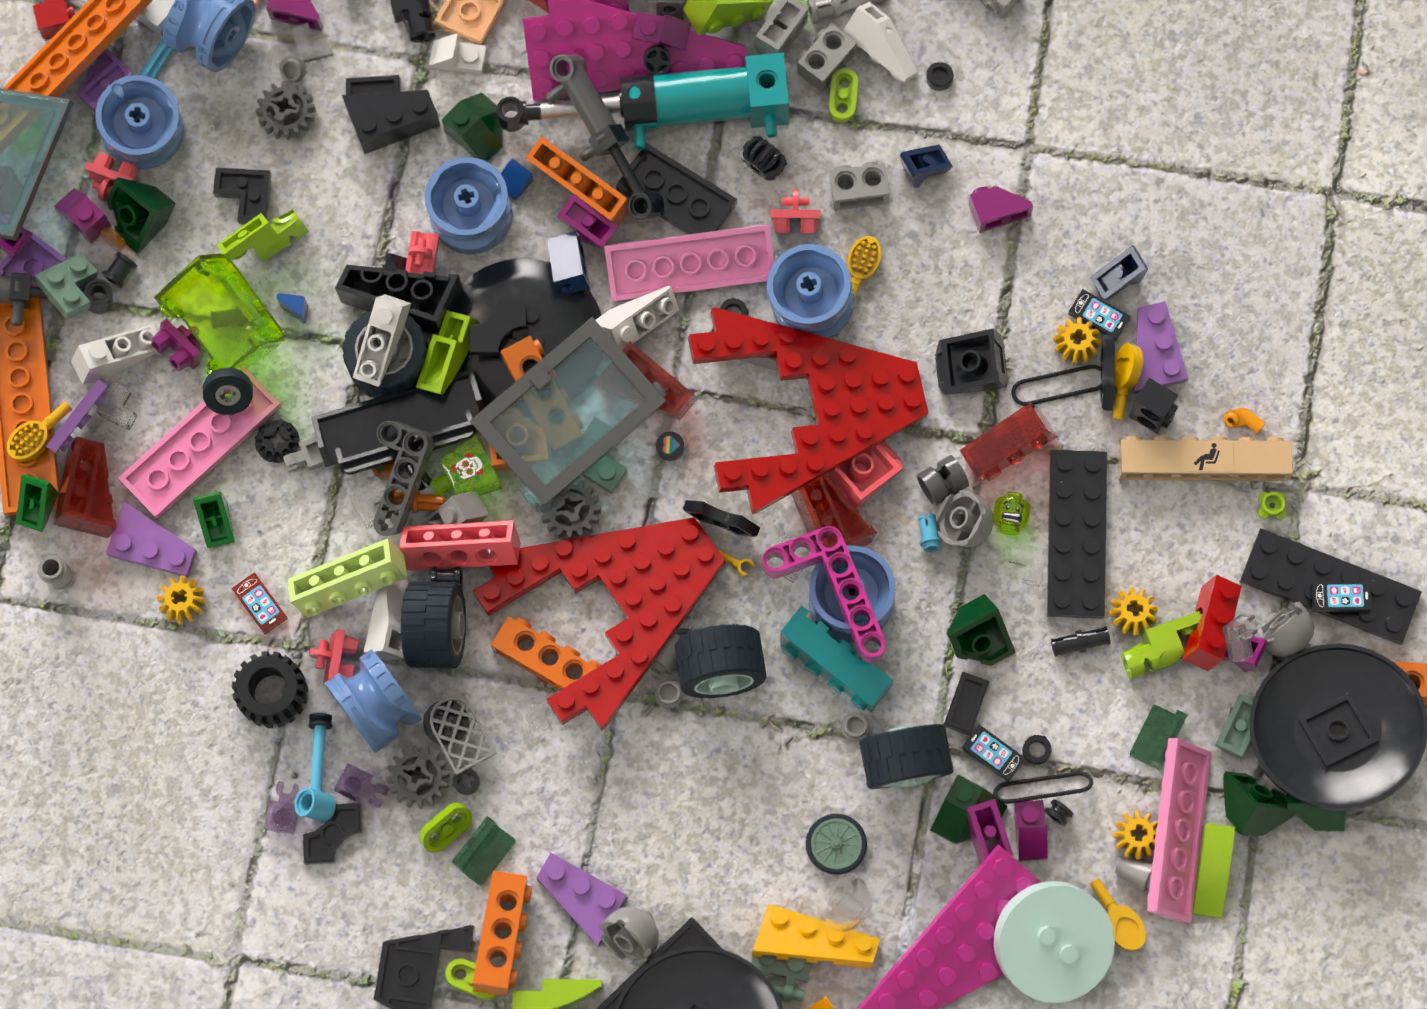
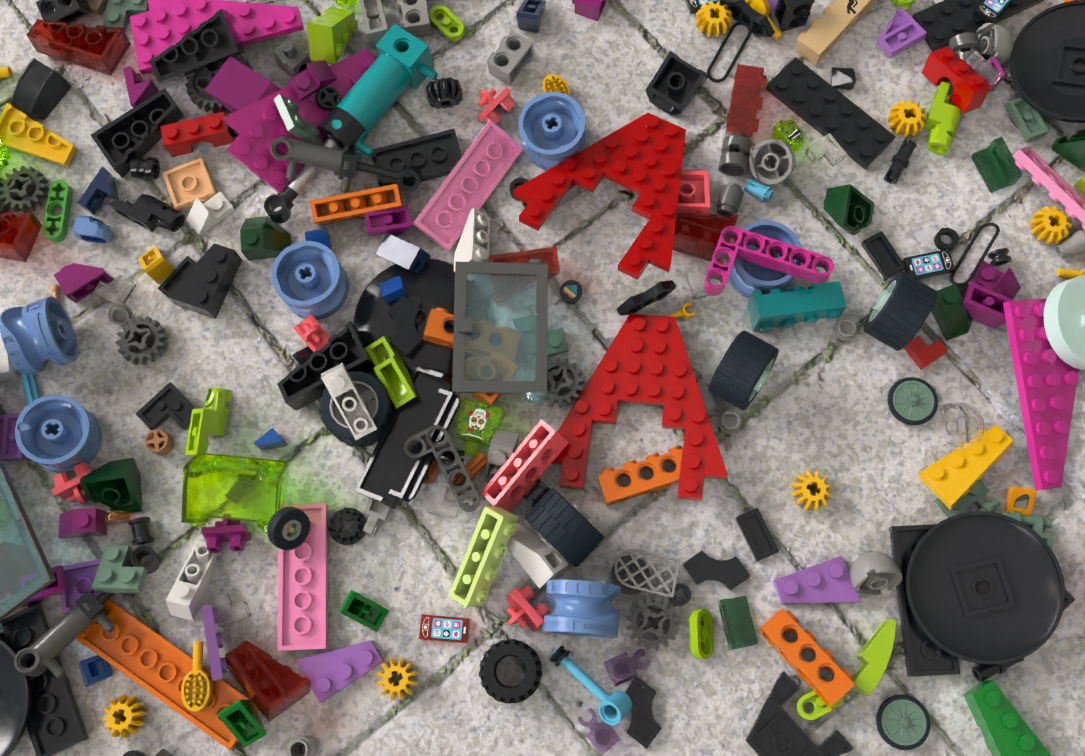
camera: 45 degrees left, 0 degrees up
(209, 205) = (155, 438): none -> medium nougat wheel
(365, 55) = (156, 265): none -> yellow slope
(509, 782) = (705, 568): none -> black tile
(525, 285) = (393, 289): none -> blue slope
(581, 805) = (756, 534): none -> black tile
(599, 56) = (295, 123): none -> sand green plate
(674, 821) = (819, 487): none -> yellow gear
(893, 513) = (729, 200): none -> dark grey brick
(893, 821) = (925, 355): none -> red piece
(1127, 516) = (843, 78): none -> black slope
(1225, 532) = (900, 34): none -> medium lavender wing
(1263, 605) = (964, 45): none -> dark grey wheel

